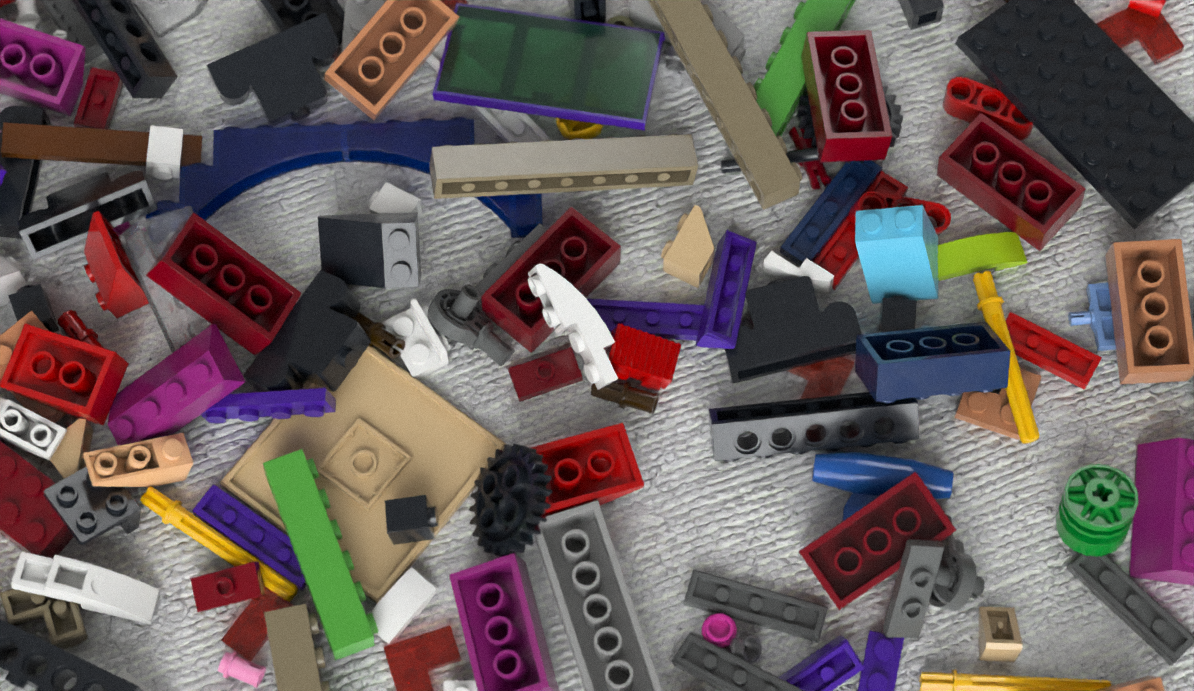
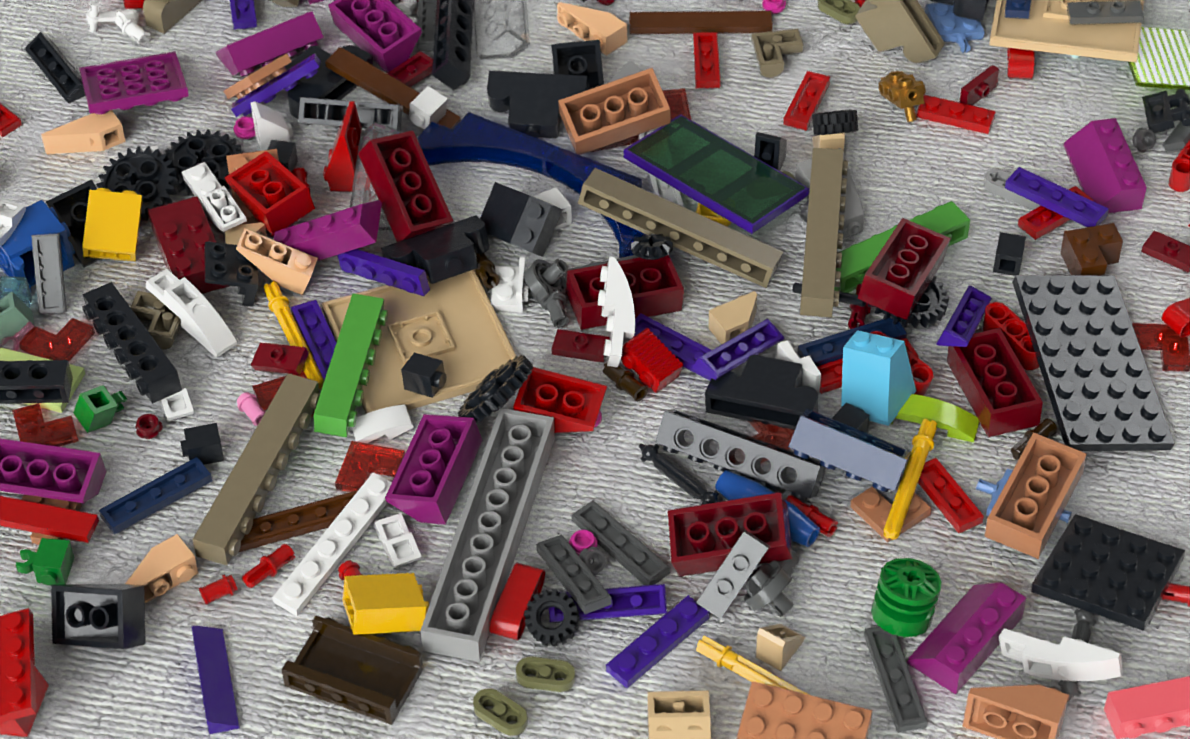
camera: 30 degrees right, 20 degrees down
(545, 221) = (652, 246): none -> black gear
(762, 484) = (677, 474): none -> black wheel
(933, 119) = (965, 318): none -> dark purple slope
(942, 458) = (824, 522): none -> red pin
(1088, 229) = (1046, 429): none -> dark brown axle

